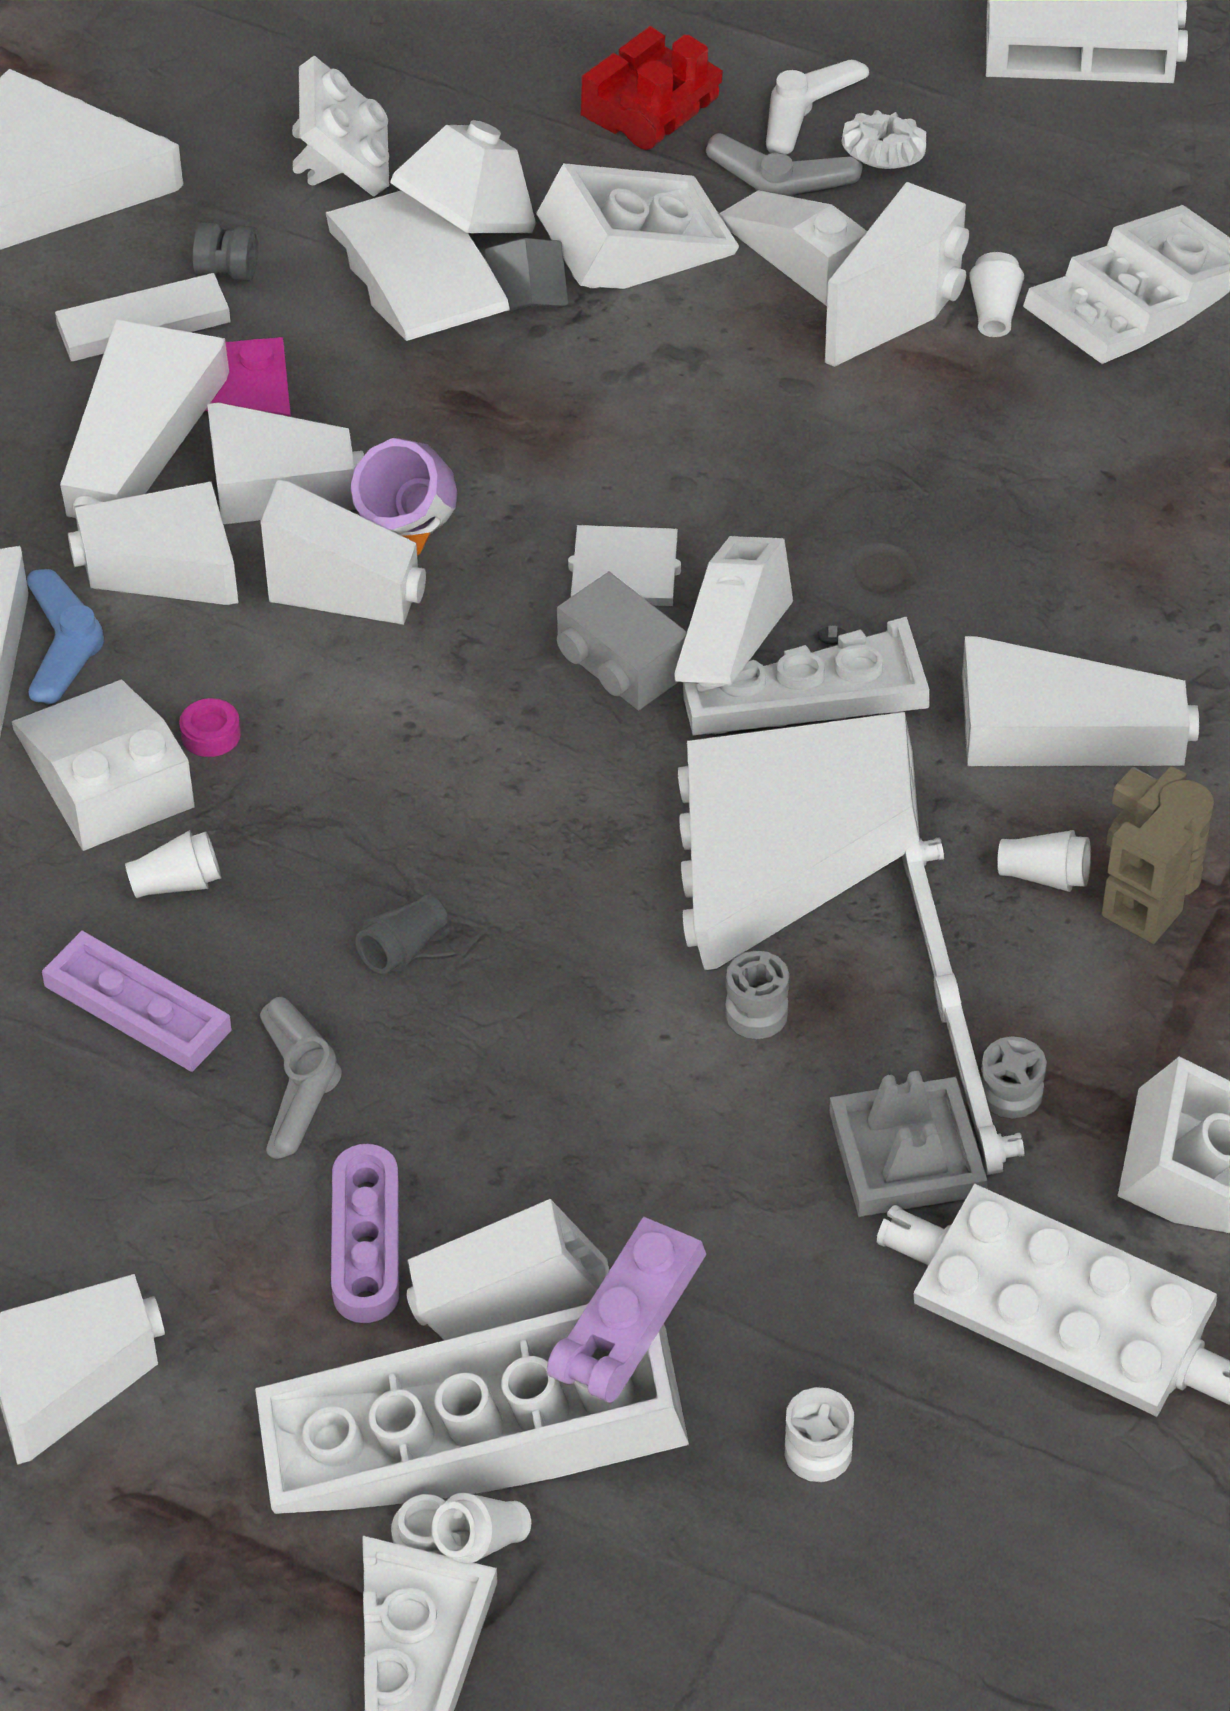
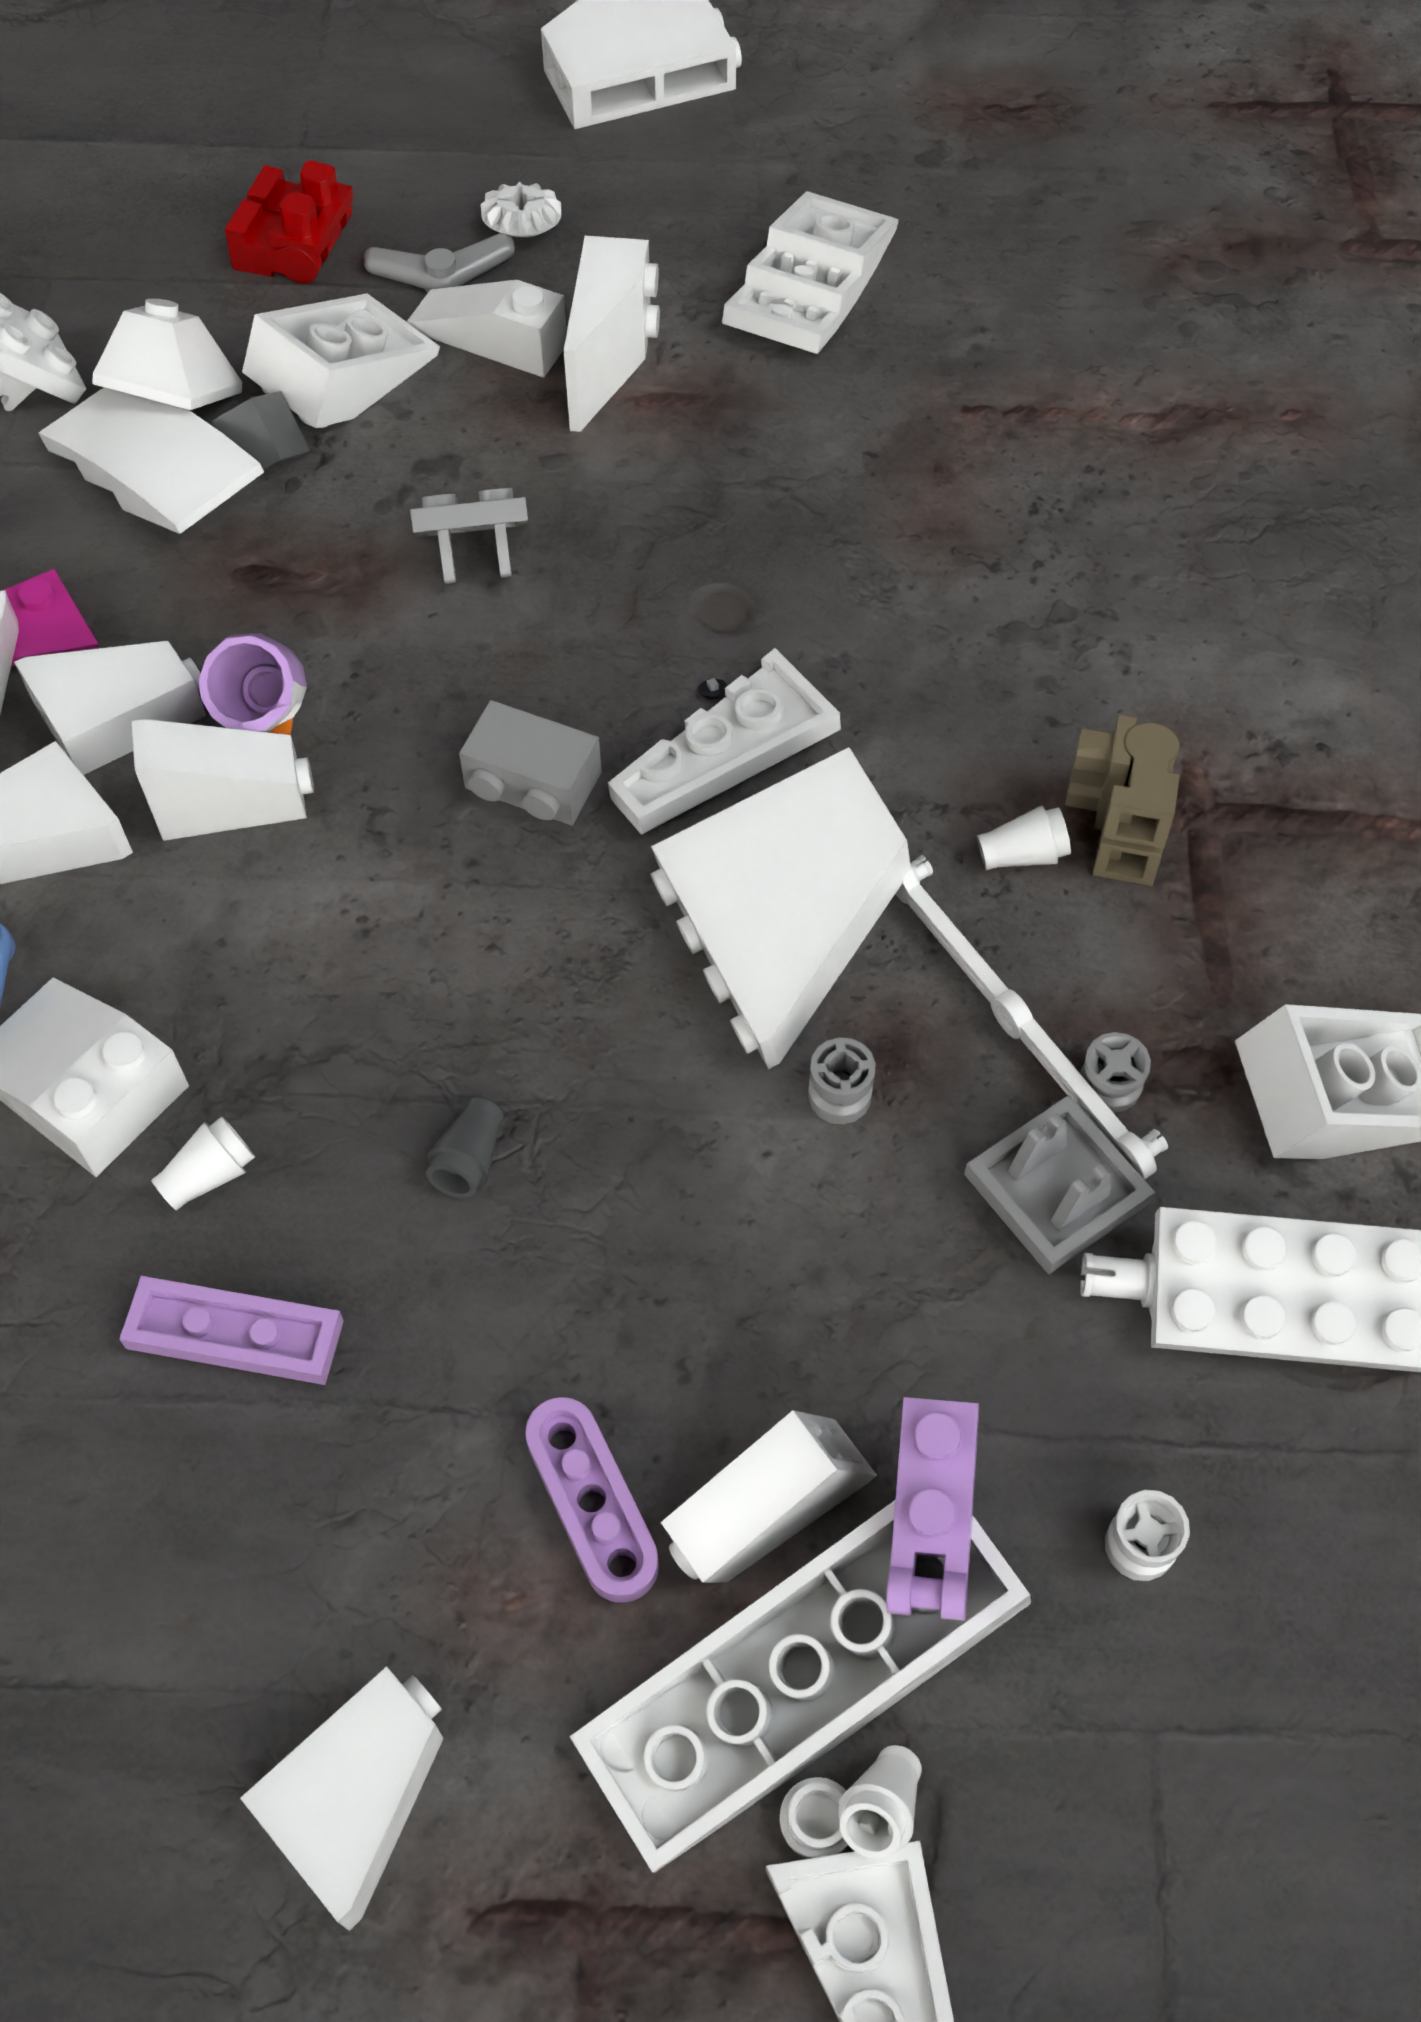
camera: 25 degrees left, 10 degrees up
(210, 727) = (167, 996): dark pink tile -> none
(310, 1069) = (446, 1334): light grey piece -> none
(635, 555) = (484, 673): white piece -> none
(698, 408) = (444, 516): none -> light grey plate
(735, 610) = (627, 699): white slope -> none
(794, 98) = (419, 195): white piece -> none
(995, 289) = (690, 314): white cone -> none
(1069, 710) = (964, 689): white slope -> none

